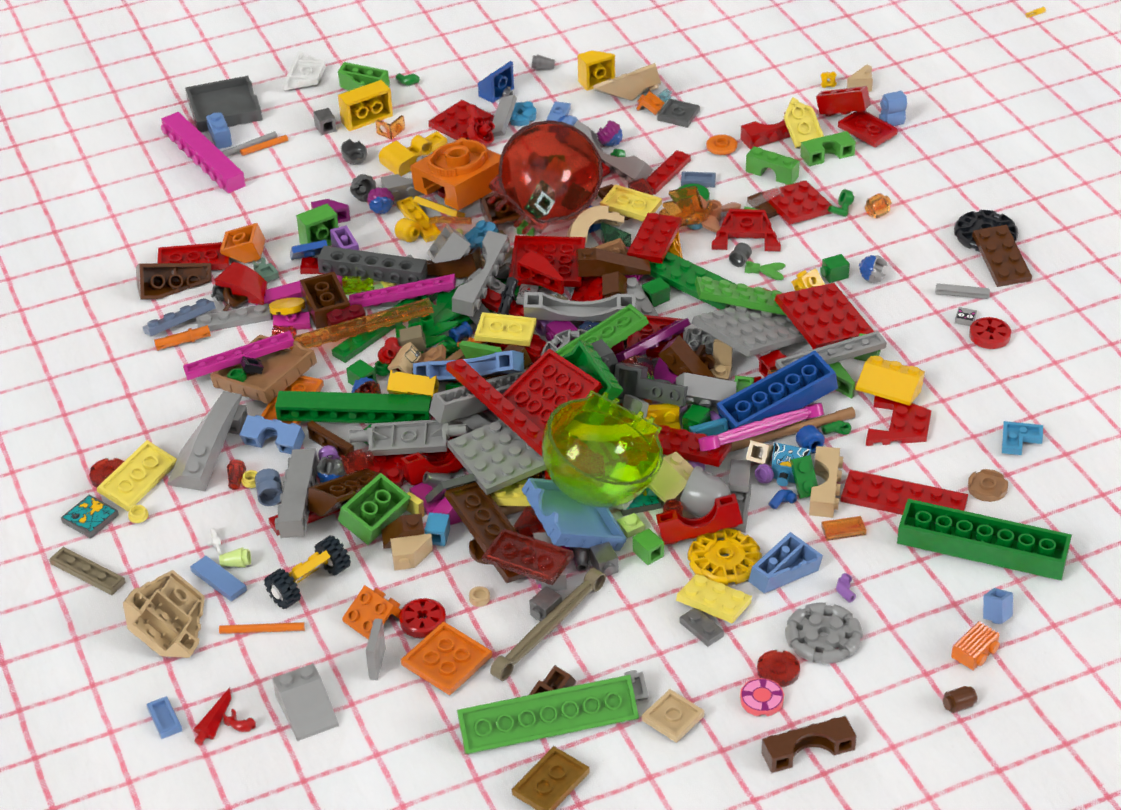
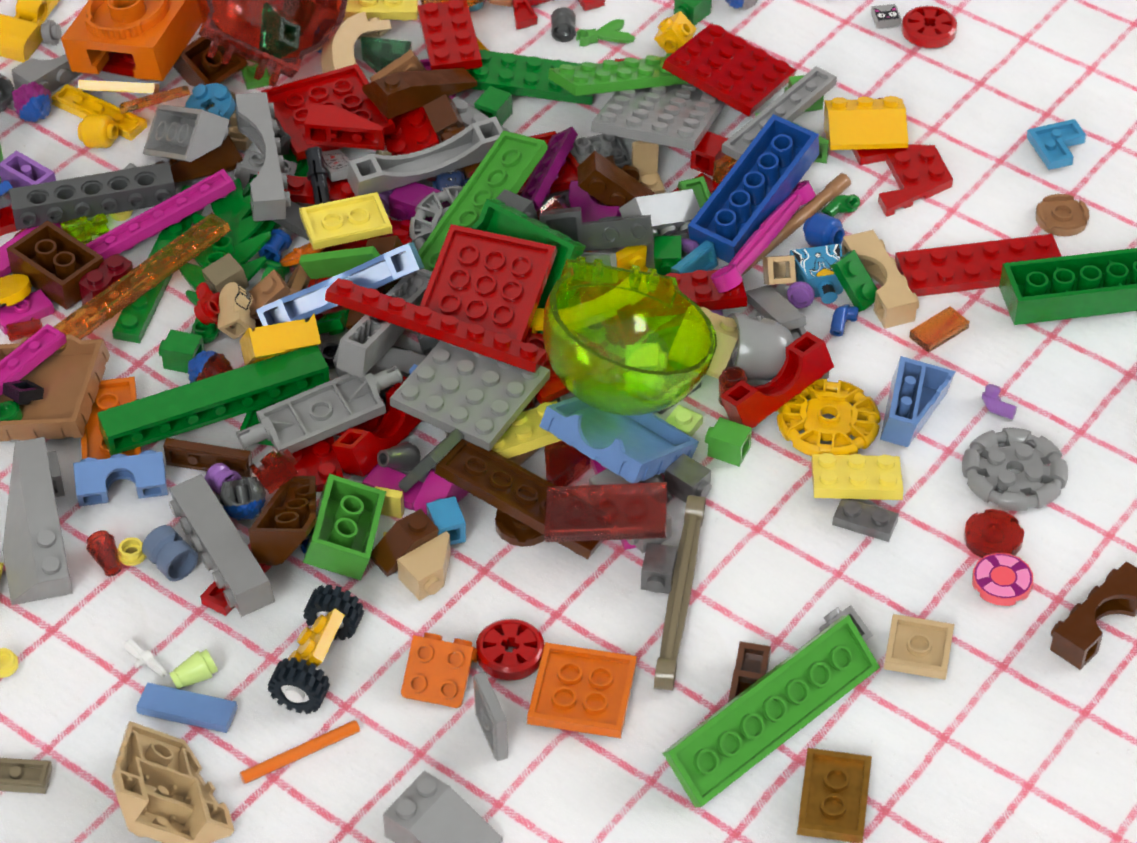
camera: 30 degrees left, 5 degrees up
(479, 596) = (560, 591): tan tile -> none

